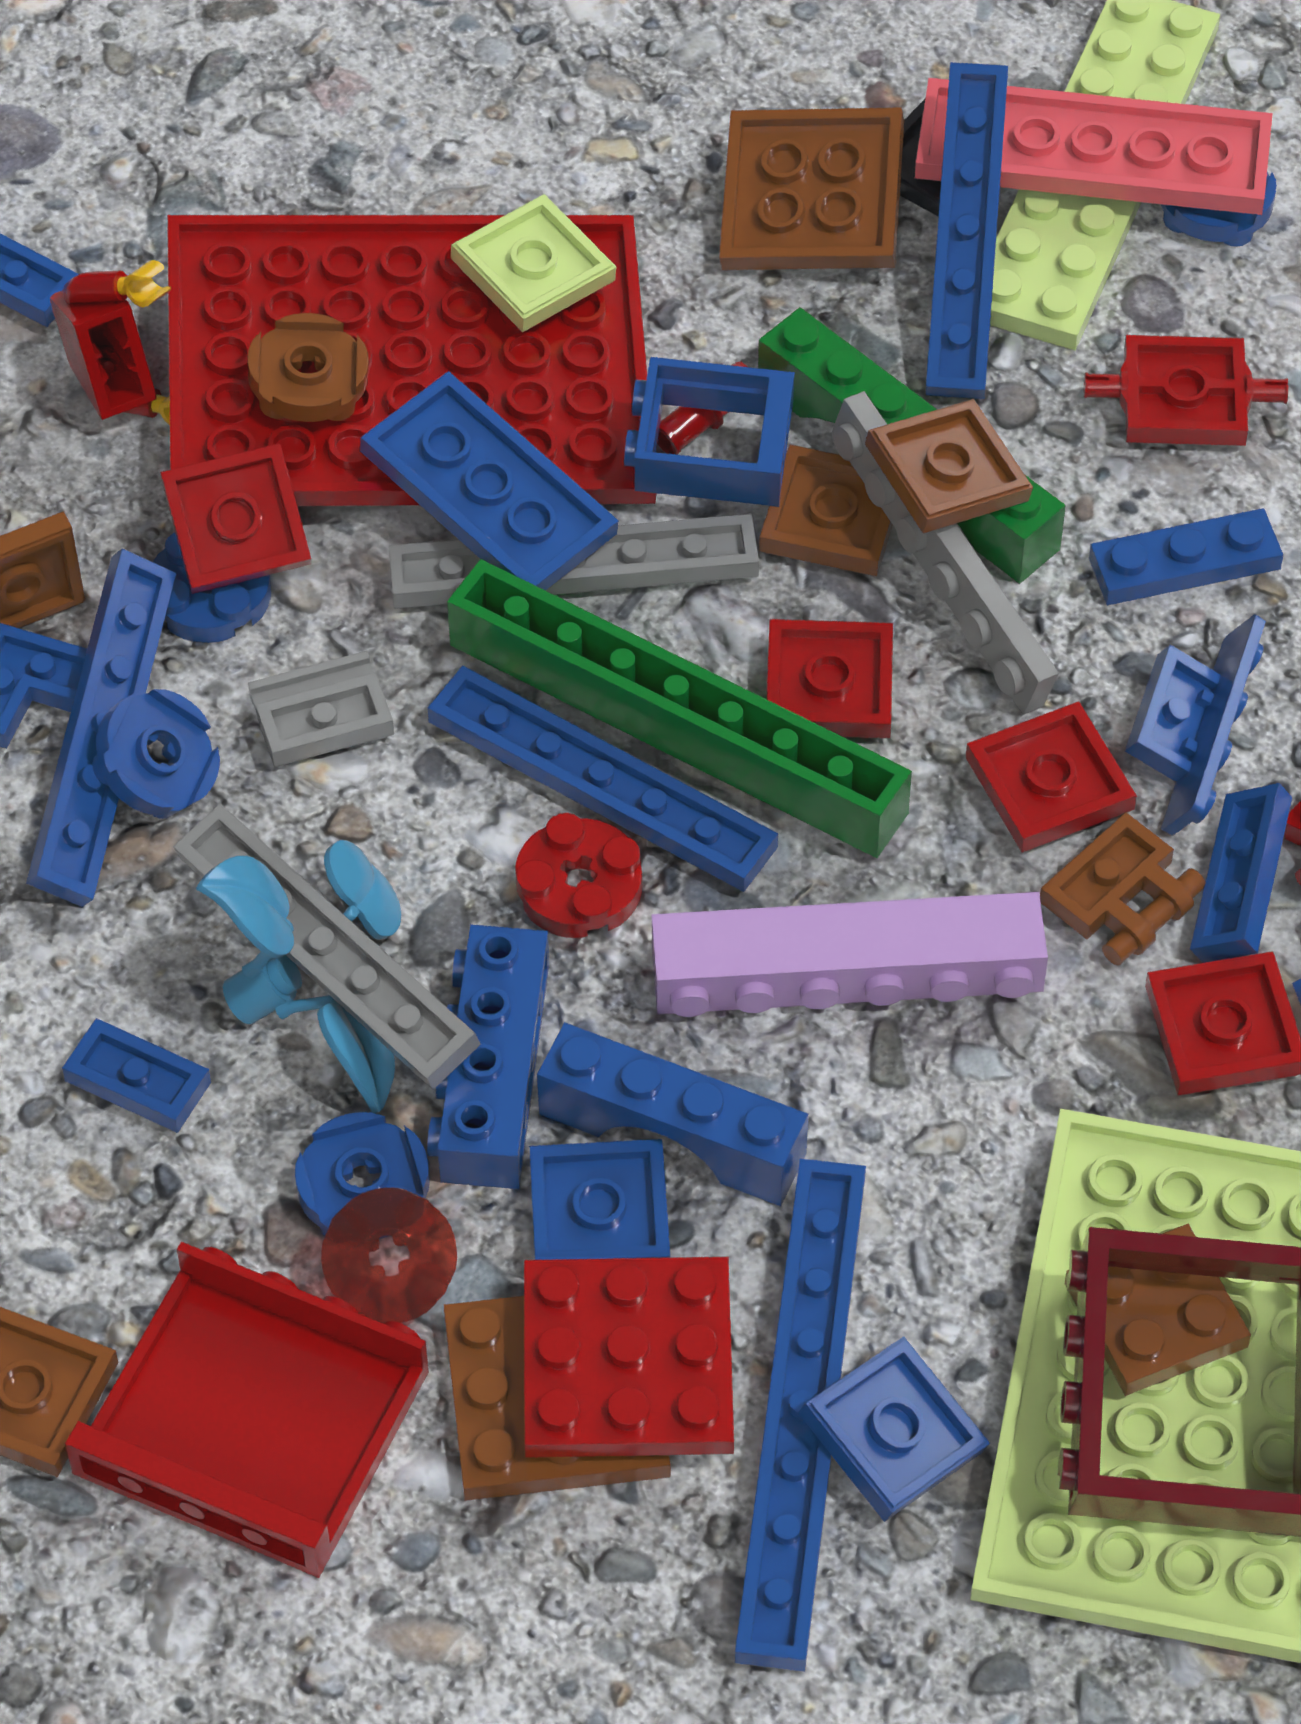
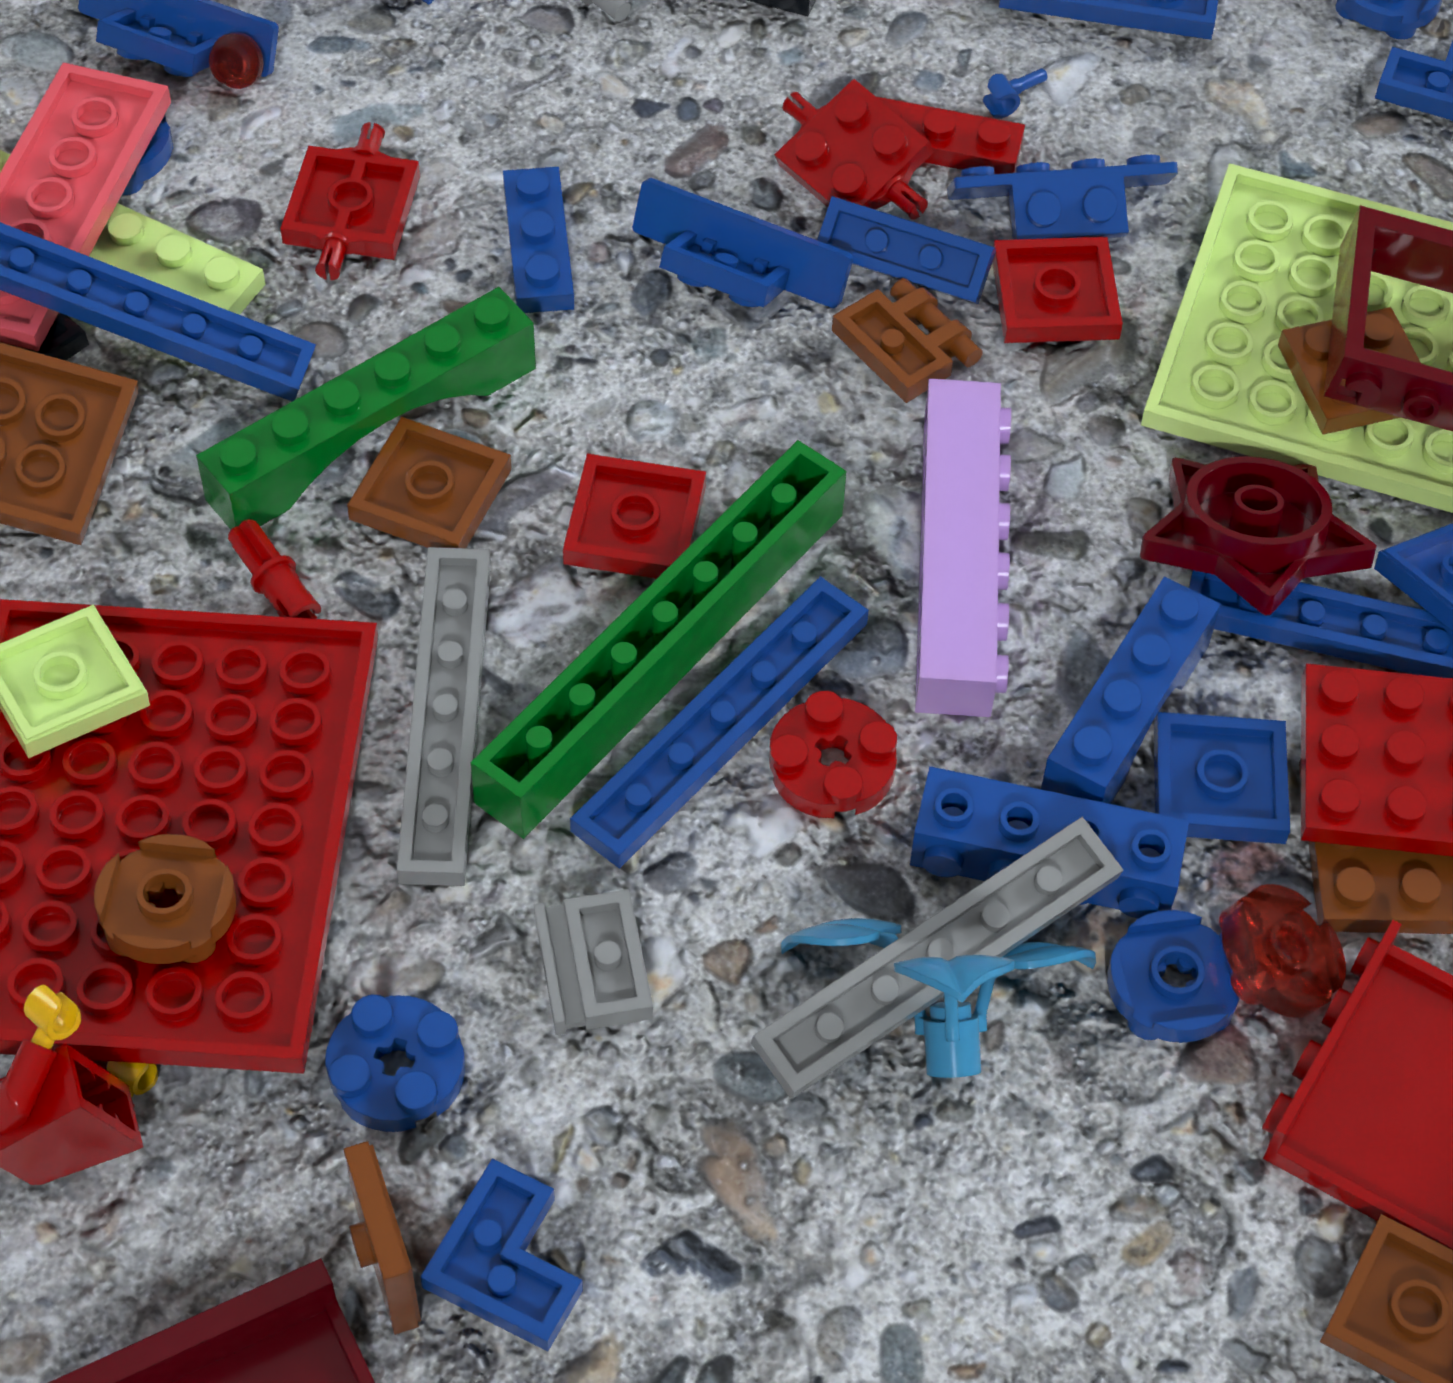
camera: 85 degrees left, 0 degrees up
(114, 667) = (596, 1169): blue plate -> none
(131, 772) = (641, 1117): blue plate -> none
(136, 1075) = (1040, 1177): blue plate -> none
(236, 518) = (357, 994): red plate -> none
(488, 484) = (360, 752): blue plate -> none
(718, 389) = (331, 491): blue window -> none
(915, 1217) = (1254, 527): none -> dark red plate
(948, 465) = (454, 349): dark orange plate -> none
(953, 571) = (518, 394): light grey plate -> none
(1050, 776) = (777, 368): red plate -> none

